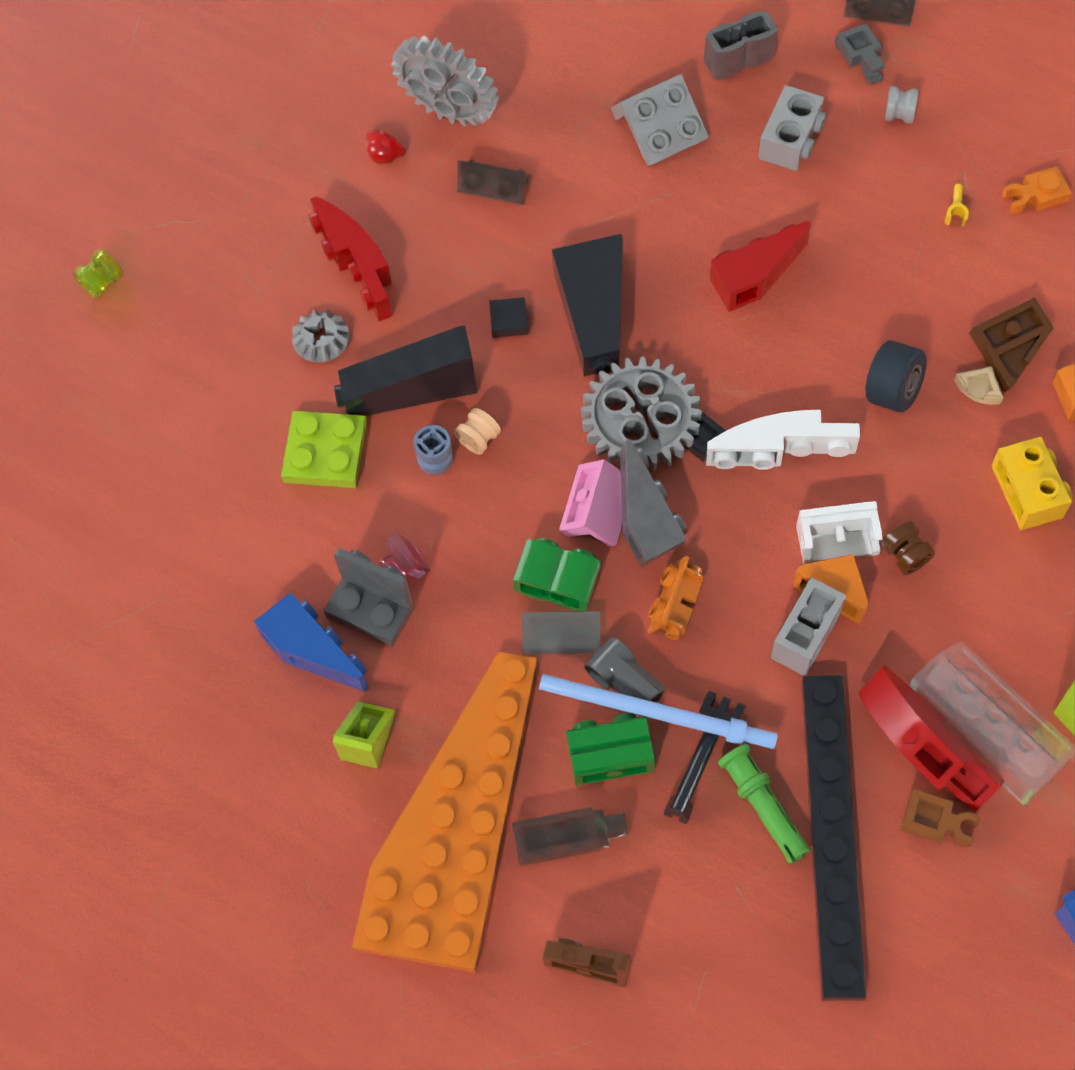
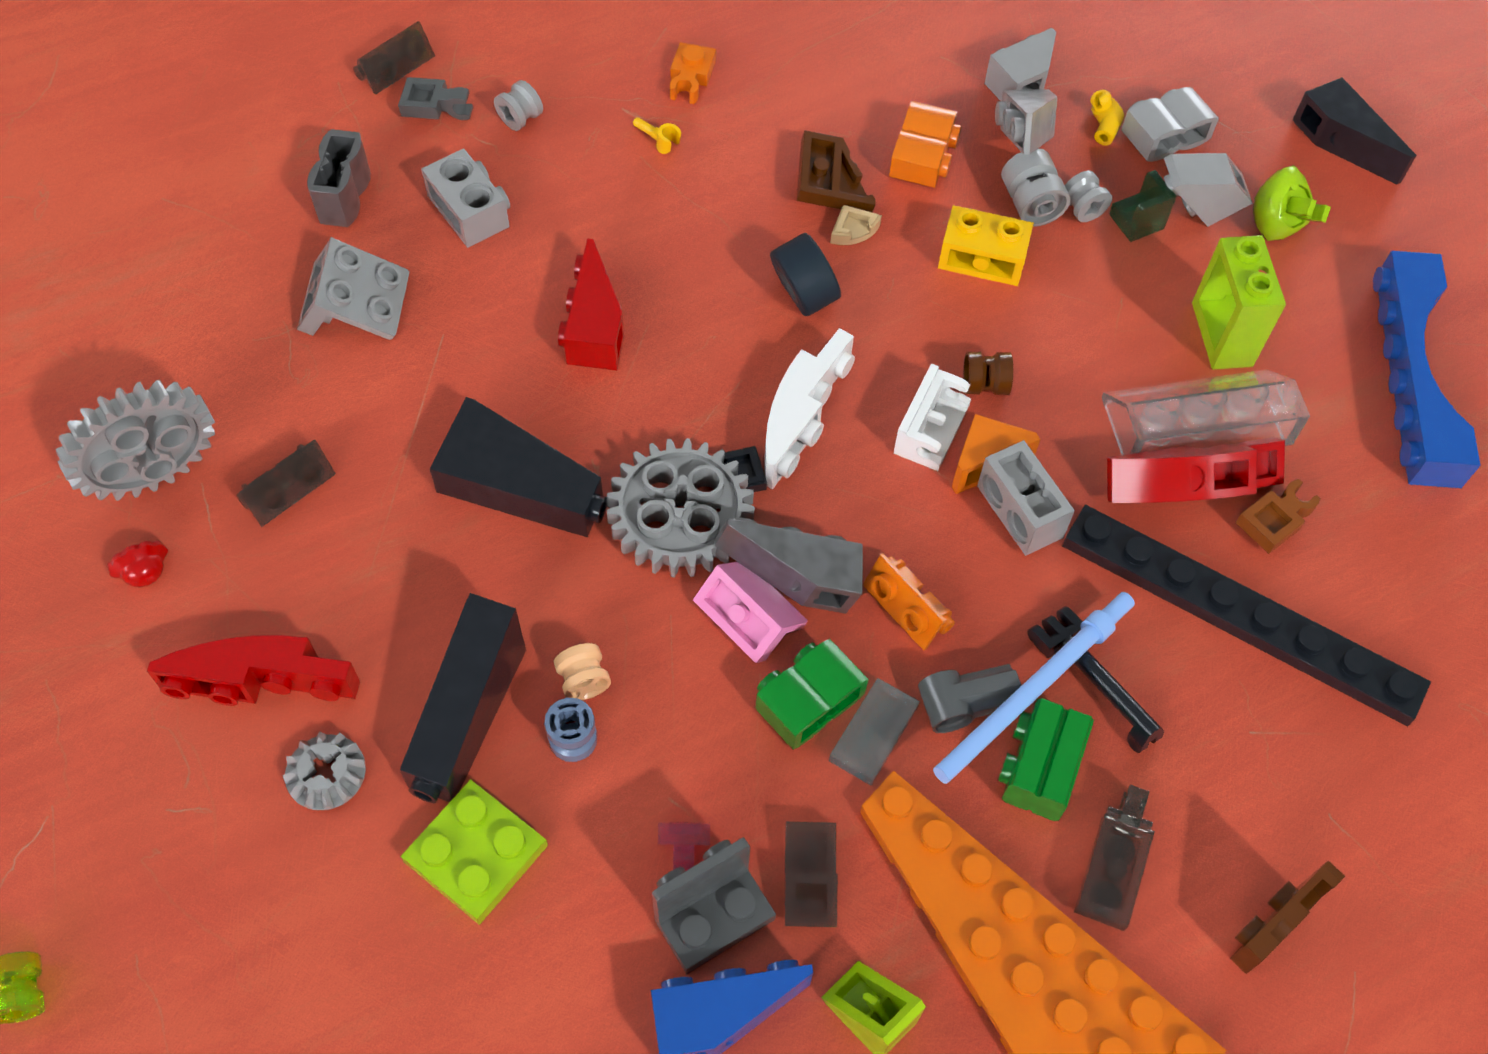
camera: 65 degrees left, 5 degrees down
(432, 650) = (810, 874): none -> clear smoke slope
(508, 317) = (463, 564): black tile -> none
(755, 787) = (1162, 649): bright green pin -> none

